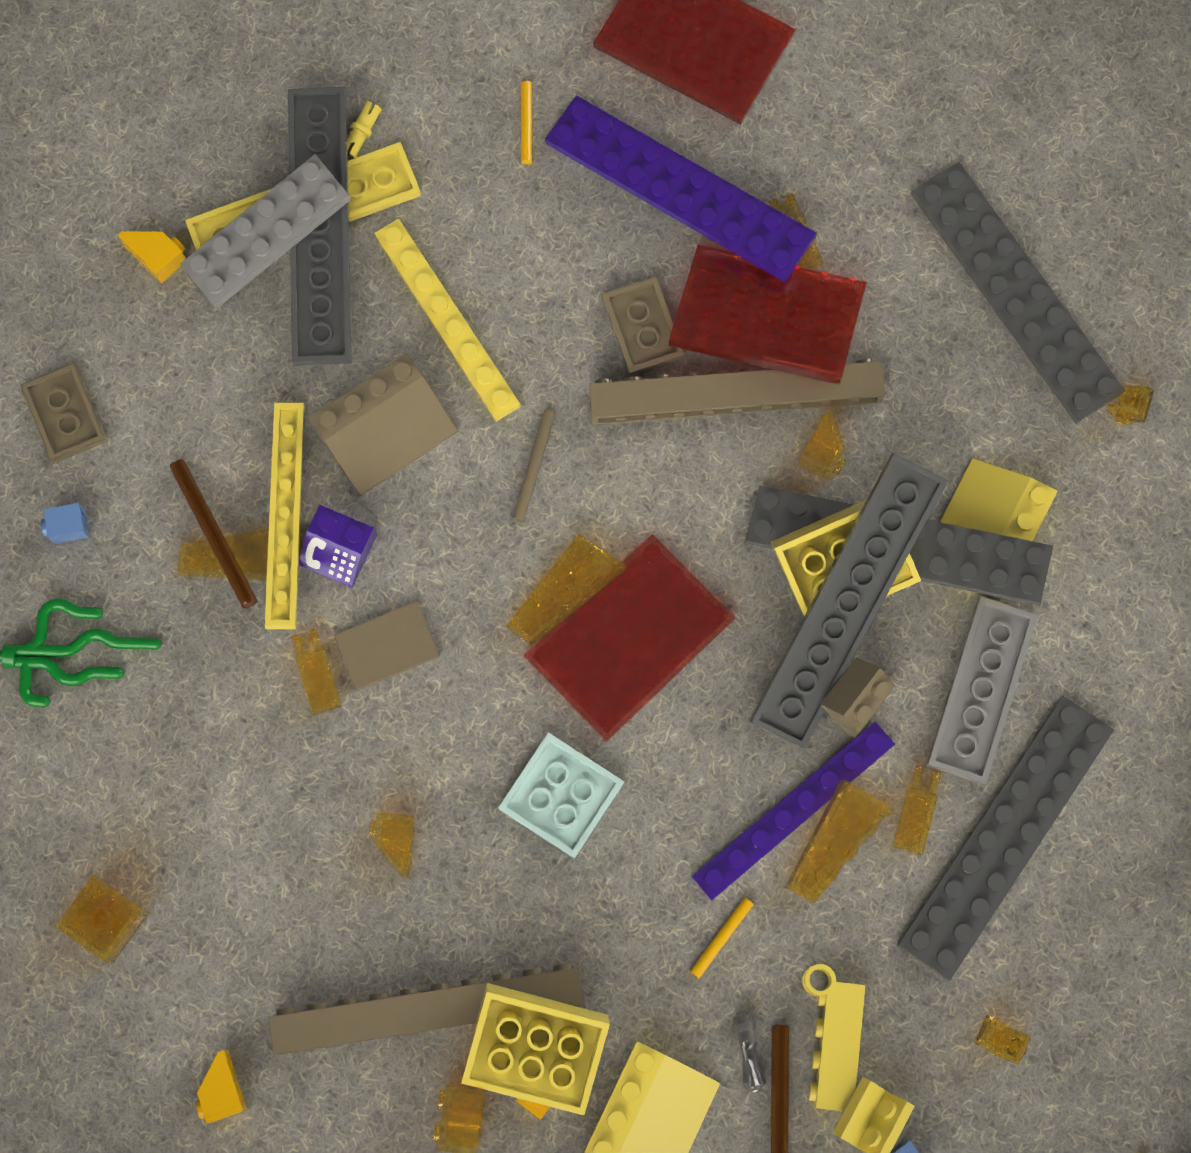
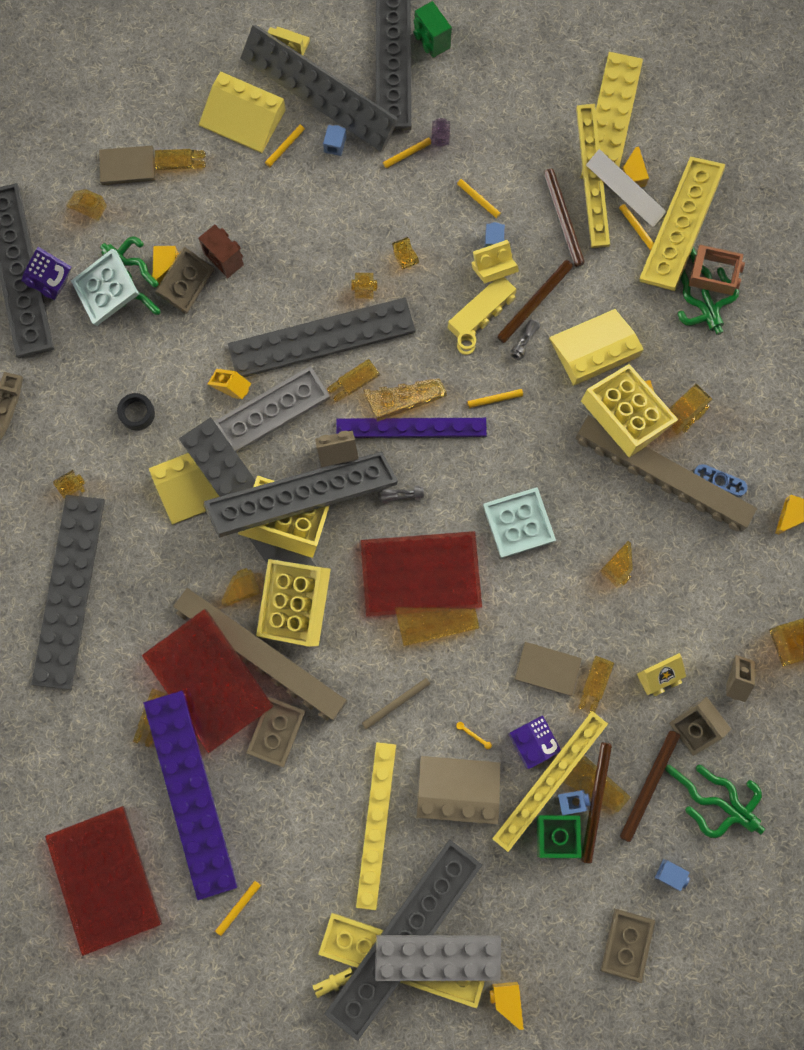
camera: 140 degrees left, 0 degrees up
(142, 818) = (741, 679): none -> dark tan slope
(151, 721) = (700, 726): none -> dark tan slope
(163, 606) = (649, 786): none -> reddish brown axle
(229, 461) = (558, 836): none -> green brick
(241, 505) = (567, 805): none -> medium blue brick
(243, 742) = (662, 674): none -> light yellow slope
(324, 1060) = (709, 470): none -> medium blue beam
(438, 500) = (460, 725): none -> yellow hinge
(747, 476) = (293, 602): none -> light yellow slope
(747, 701) = (388, 495): none -> flat silver piece
(1015, 949) = (364, 285): none -> clear yellow brick
(1063, 678) = (230, 383): none -> yellow slope
(1150, 532) = (127, 400): none -> black tyre

